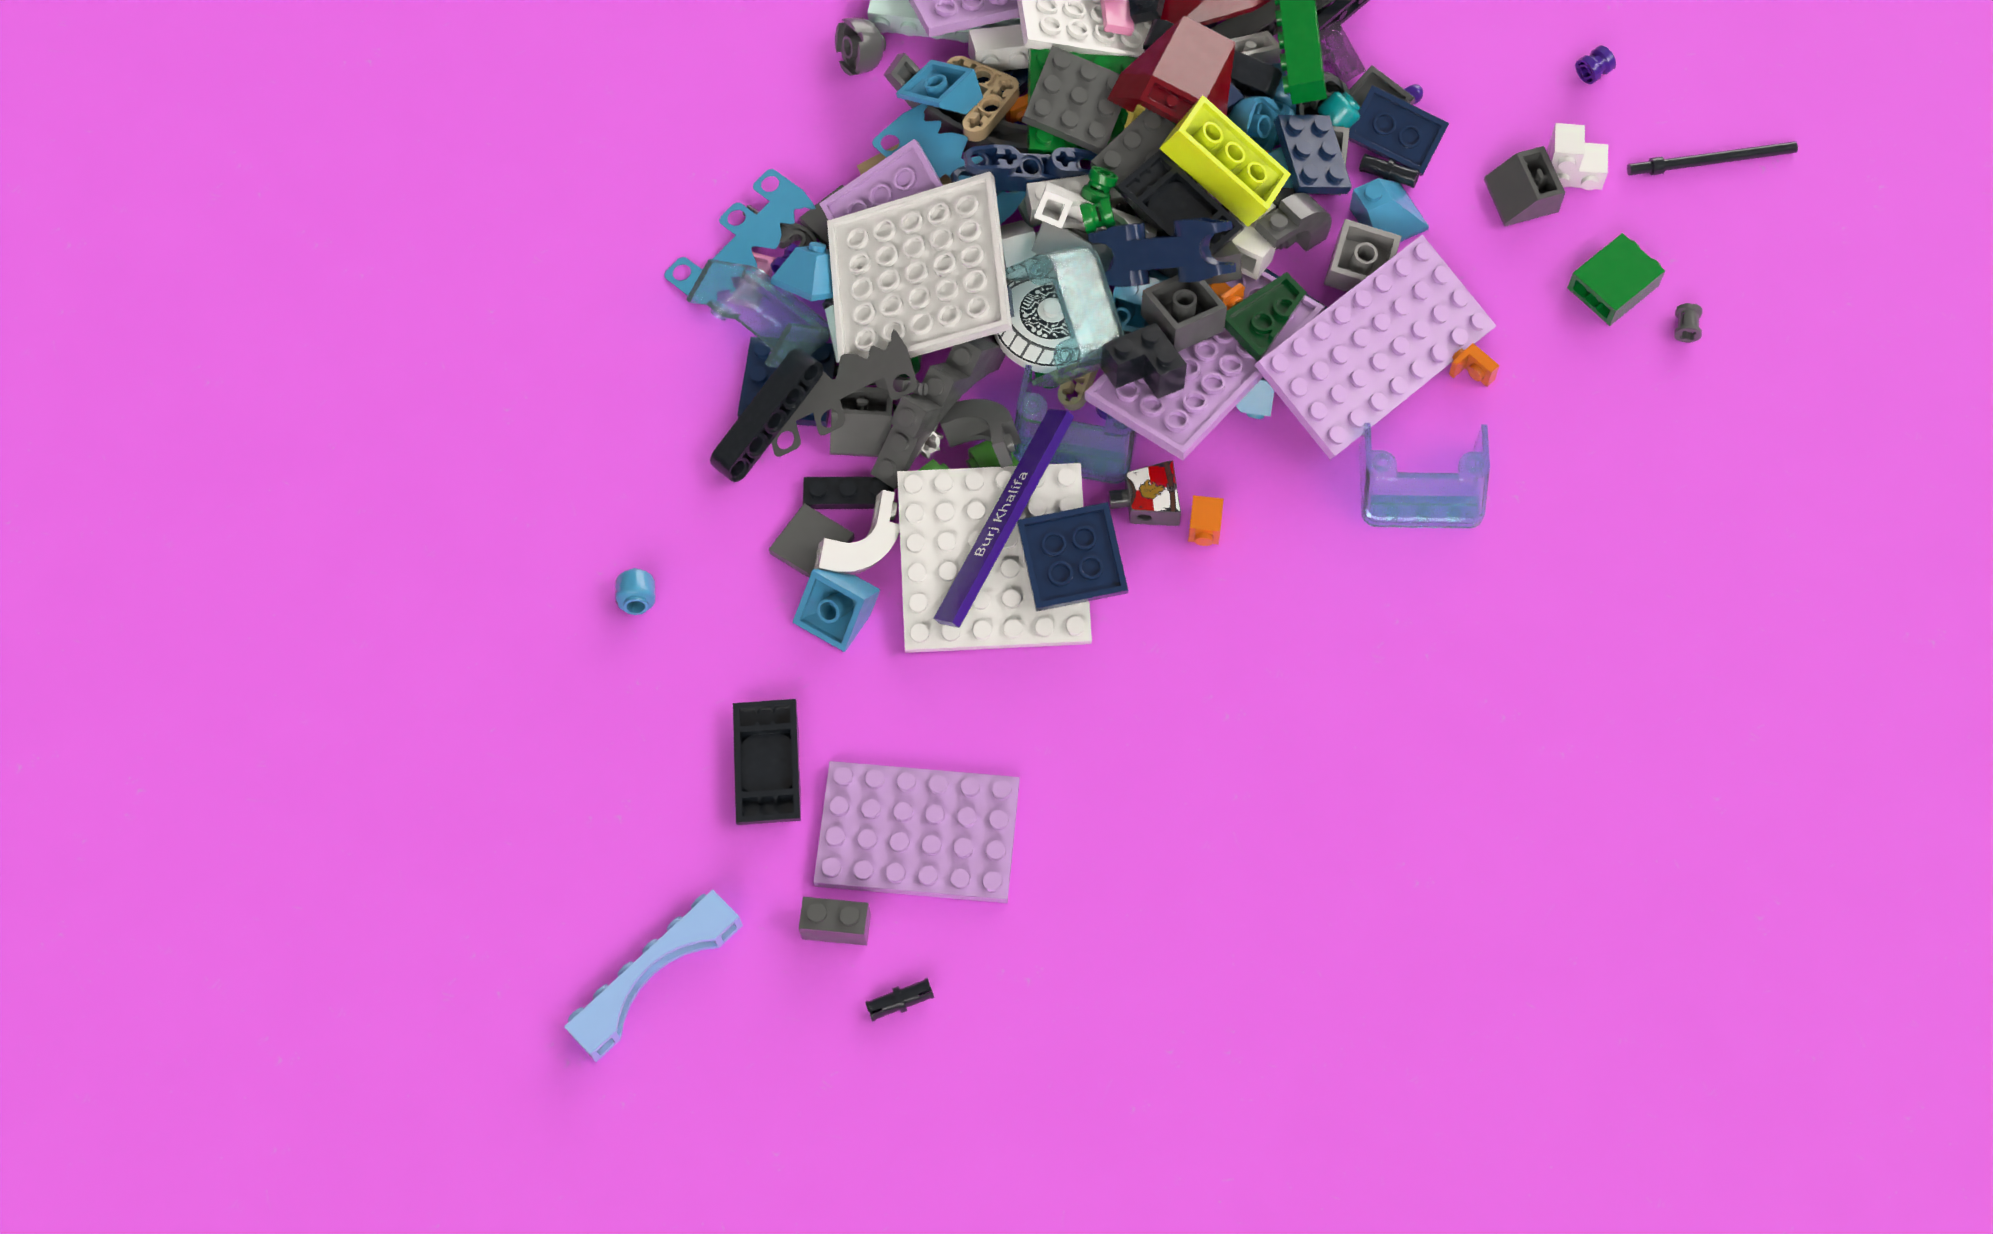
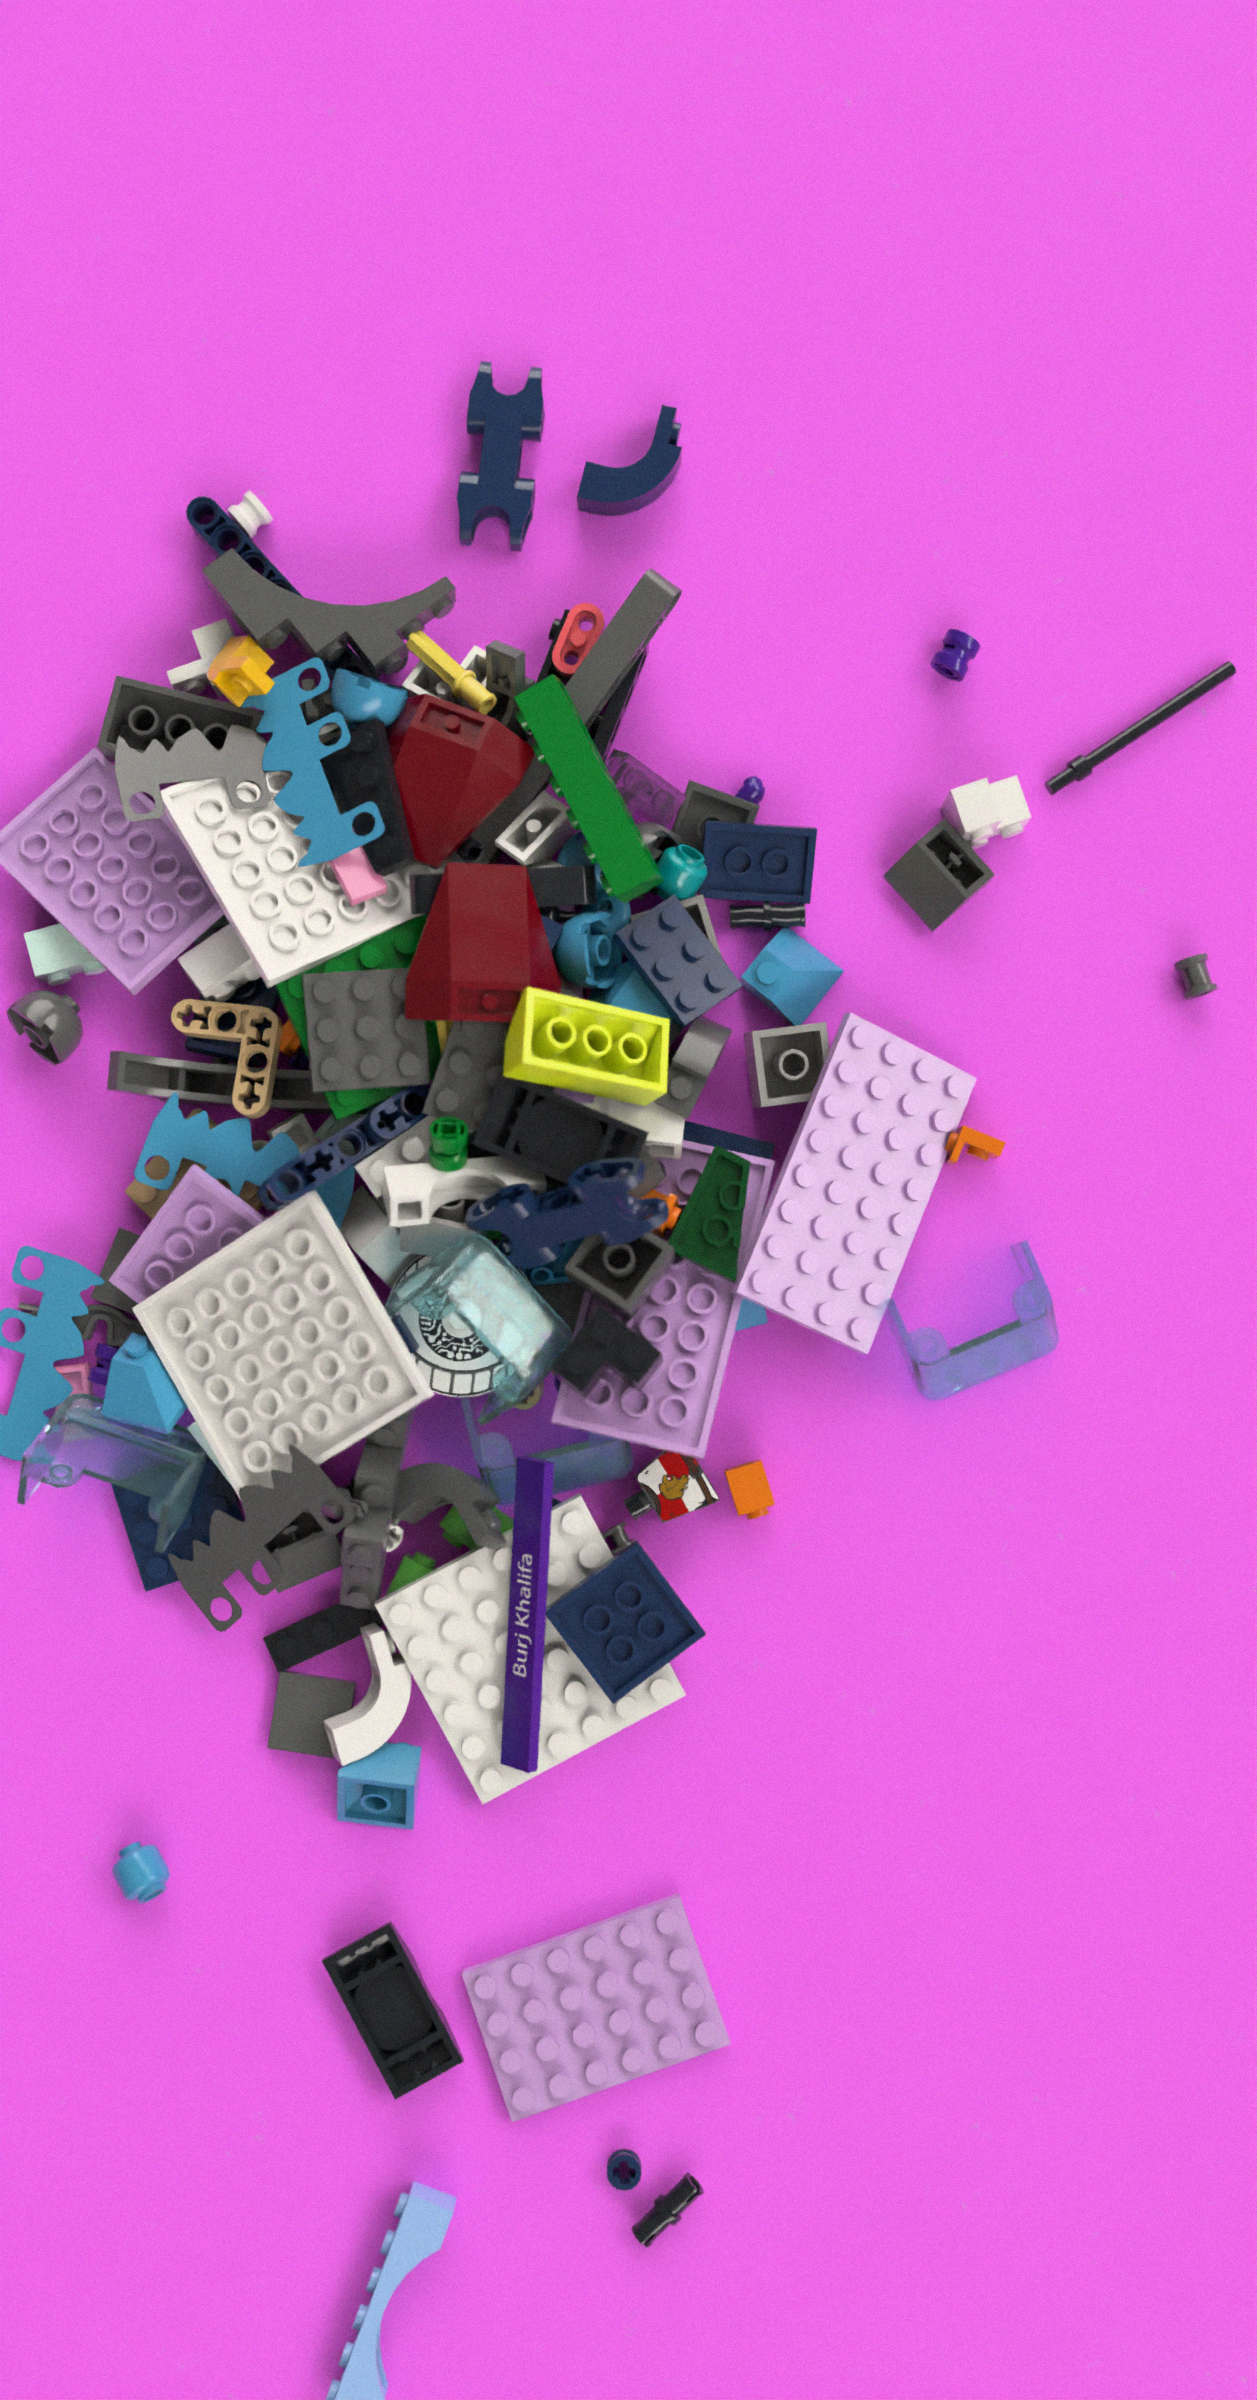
camera: 25 degrees left, 20 degrees up
(766, 414) = (185, 1592): black beam -> none
(834, 921) = (557, 2160): dark grey brick -> none
(890, 953) = (614, 2175): none -> dark blue bush
(943, 87) = (187, 1077): dark azure slope -> none
(1091, 218) = (466, 1191): green wheel -> none
(1616, 279) = (1092, 953): green brick -> none

